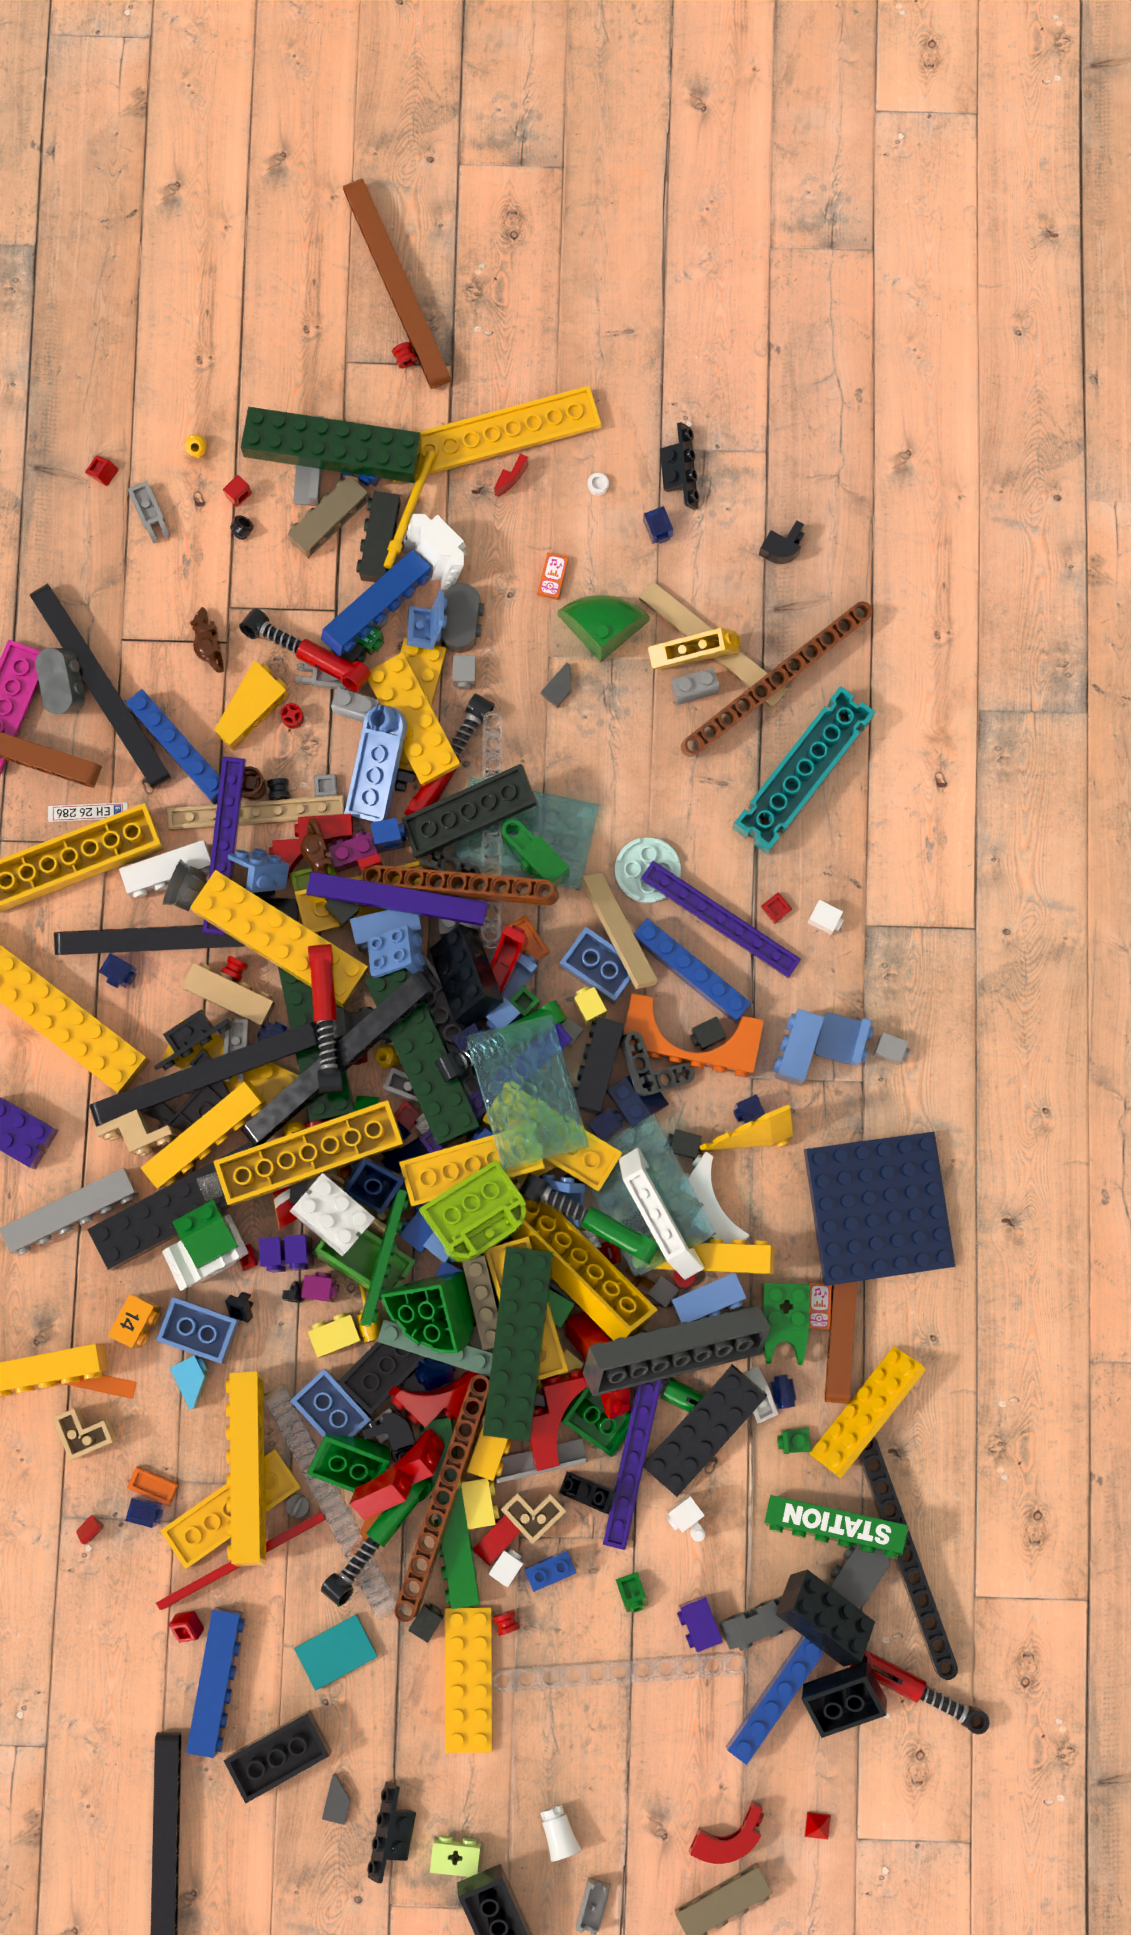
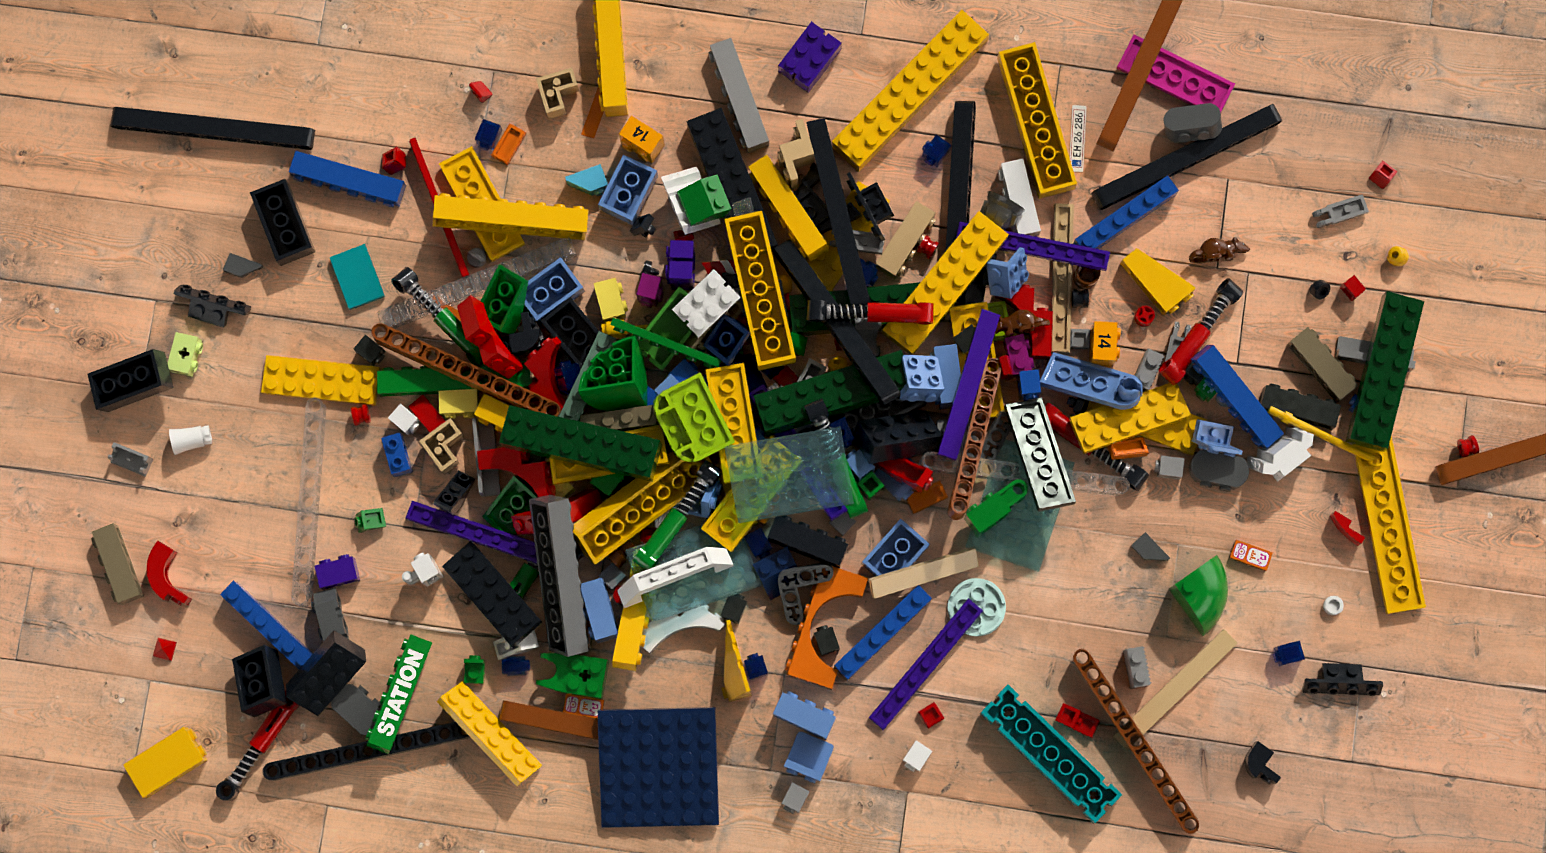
camera: 100 degrees right, 0 degrees up
(330, 755) = (1103, 343): none -> light orange brick
(448, 717) = (1128, 448): none -> orange tile
(589, 1005) = (861, 540): light yellow brick -> none
(694, 648) = (1170, 670): yellow slope -> none
(761, 746) = (1077, 720): none -> red slope
(953, 1802) = (165, 762): none -> yellow brick

